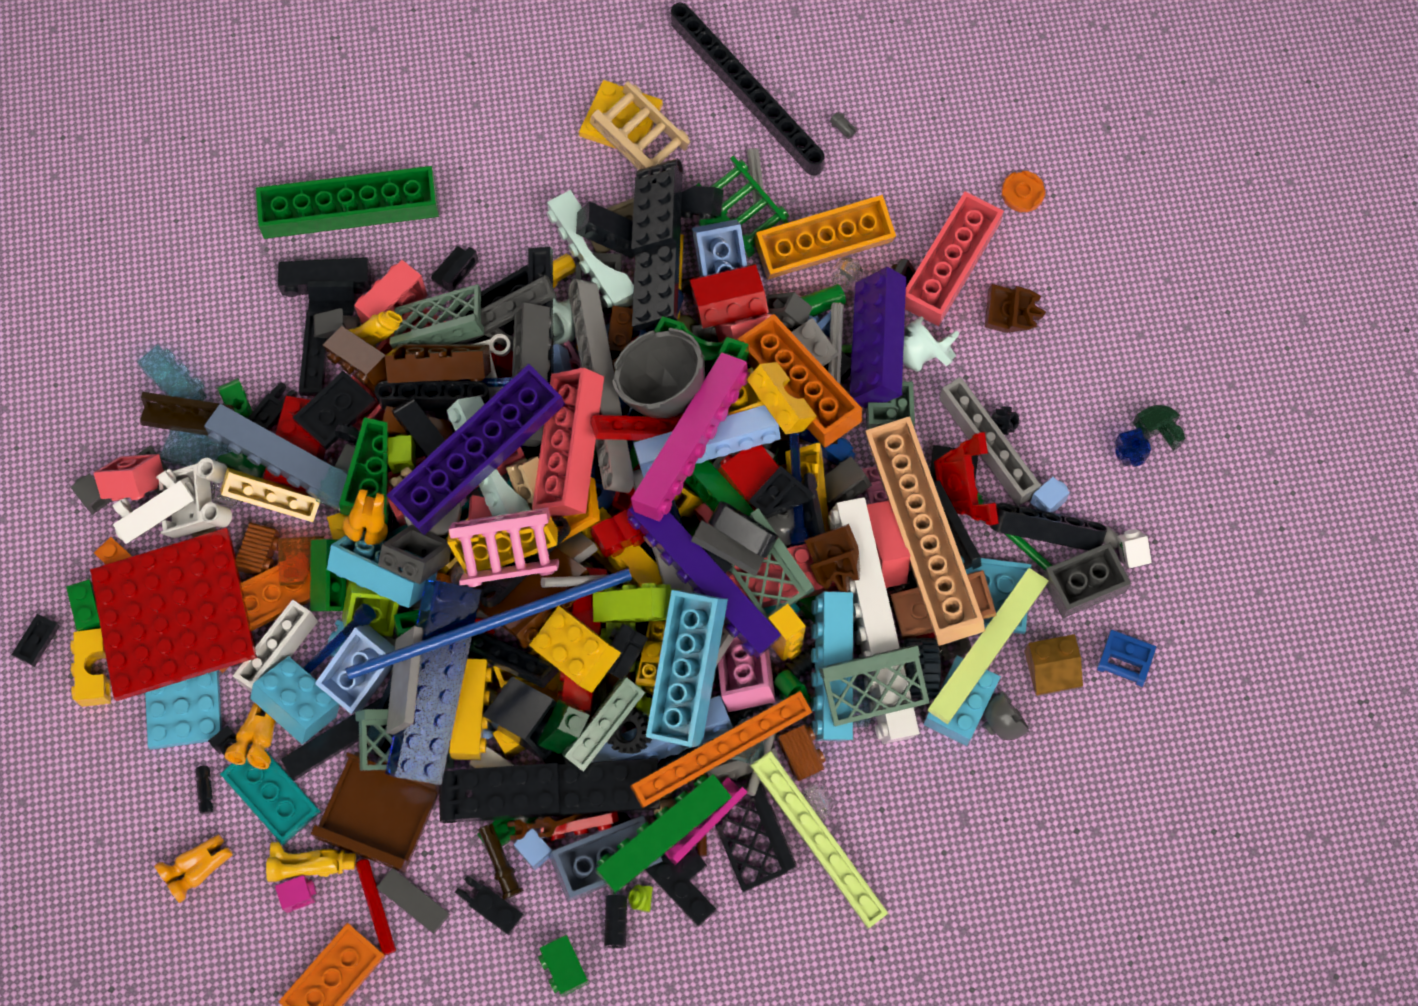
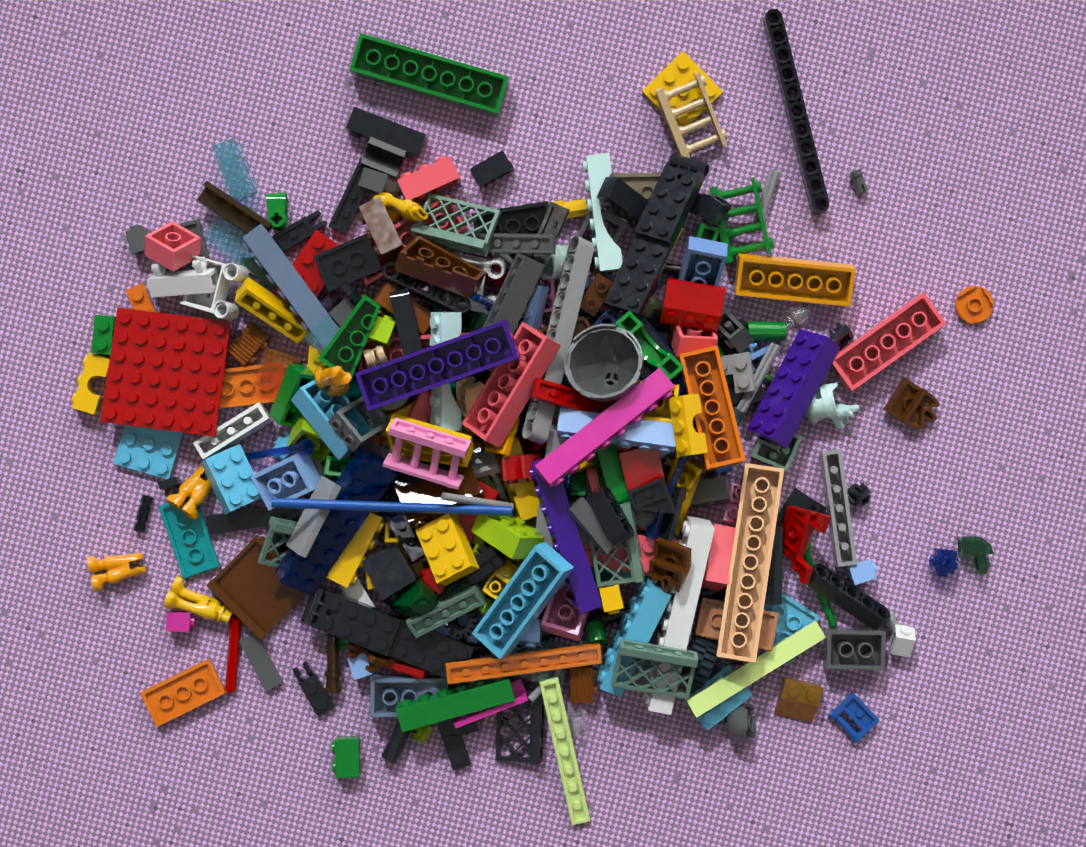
camera: 25 degrees right, 20 degrees up
(35, 640) = (59, 342): black plate -> none

